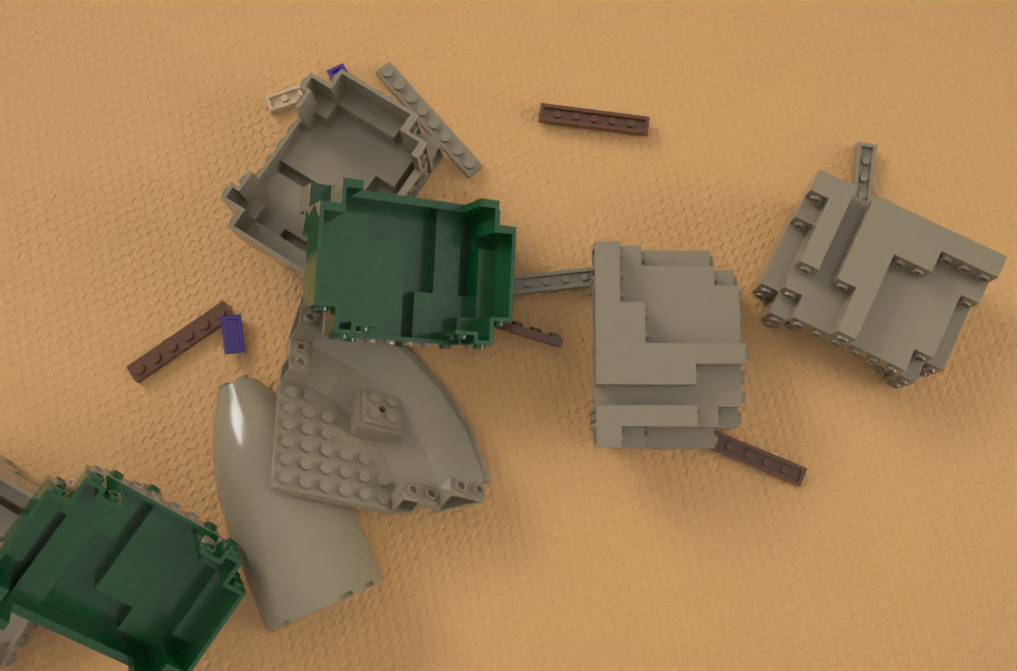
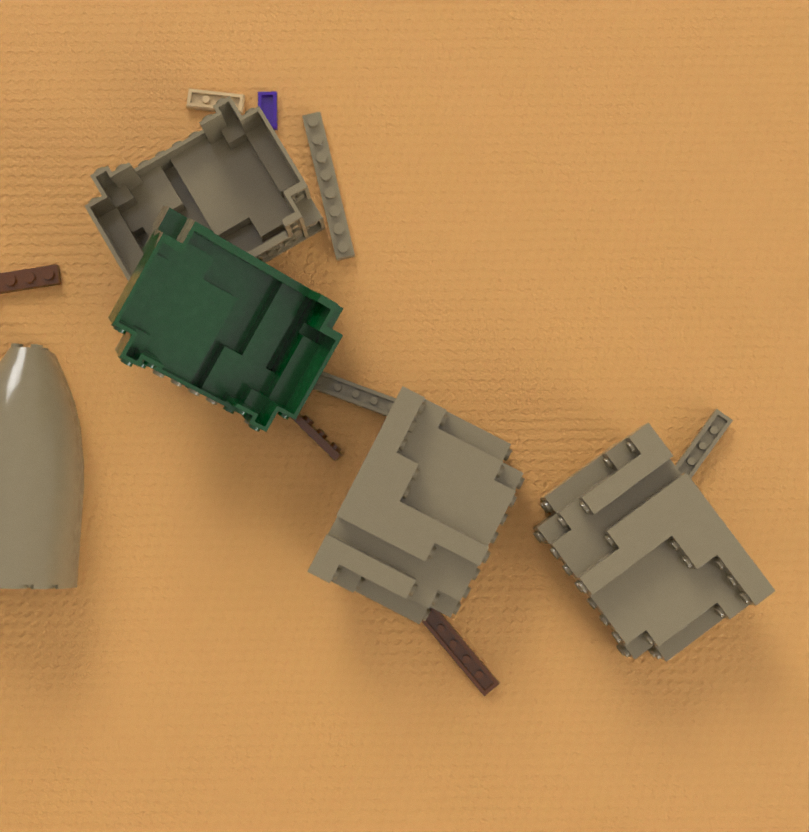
camera: 25 degrees right, 5 degrees up
(232, 334) = (50, 300): dark purple tile -> none
(345, 451) = (93, 459): dark tan panel -> none
(594, 119) = (480, 262): reddish brown plate -> none

